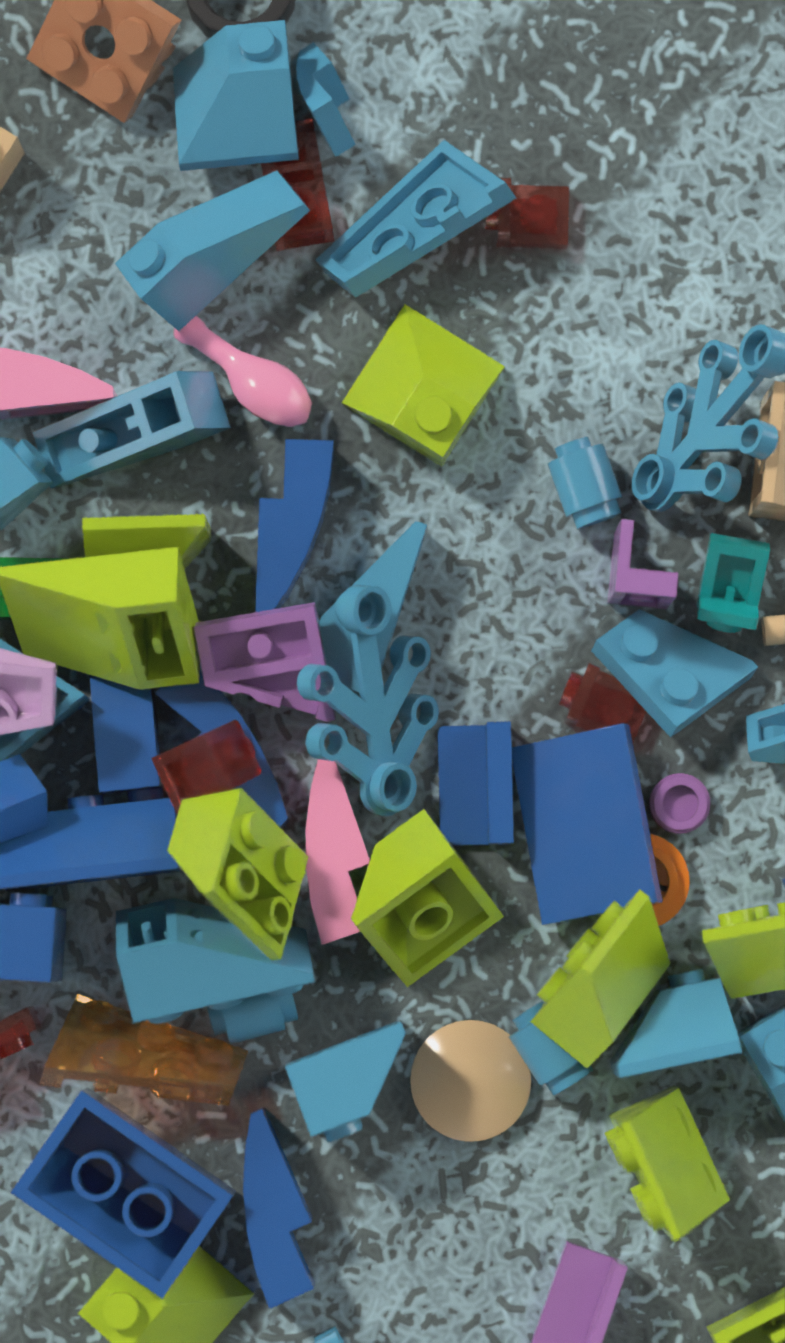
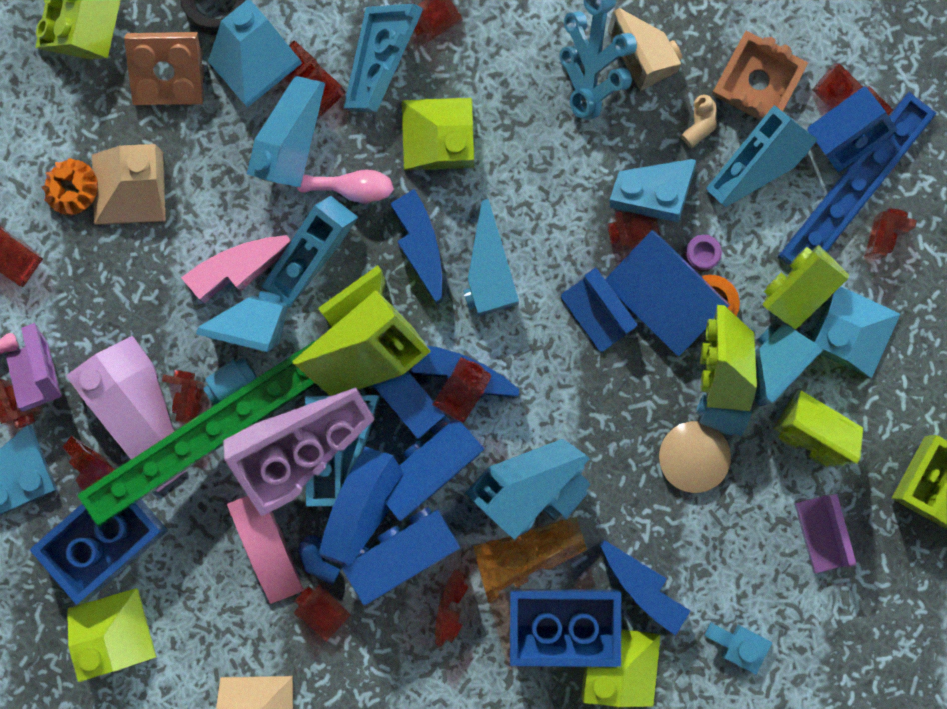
camera: 30 degrees left, 0 degrees up
(241, 864) = (514, 425): lime slope -> none
(263, 656) = (456, 316): medium lavender wing -> none
(323, 96) = (293, 24): dark azure slope -> none
(333, 851) = (551, 391): bright pink slope -> none
(344, 1080) = (636, 496): dark azure slope -> none
(385, 775) = (550, 333): dark azure plant -> none
(420, 900) = (611, 384): lime slope -> none
(585, 482) = (550, 127): dark azure brick -> none
(633, 585) = (609, 160): medium lavender panel -> none
(732, 583) = (655, 127): teal bracket -> none

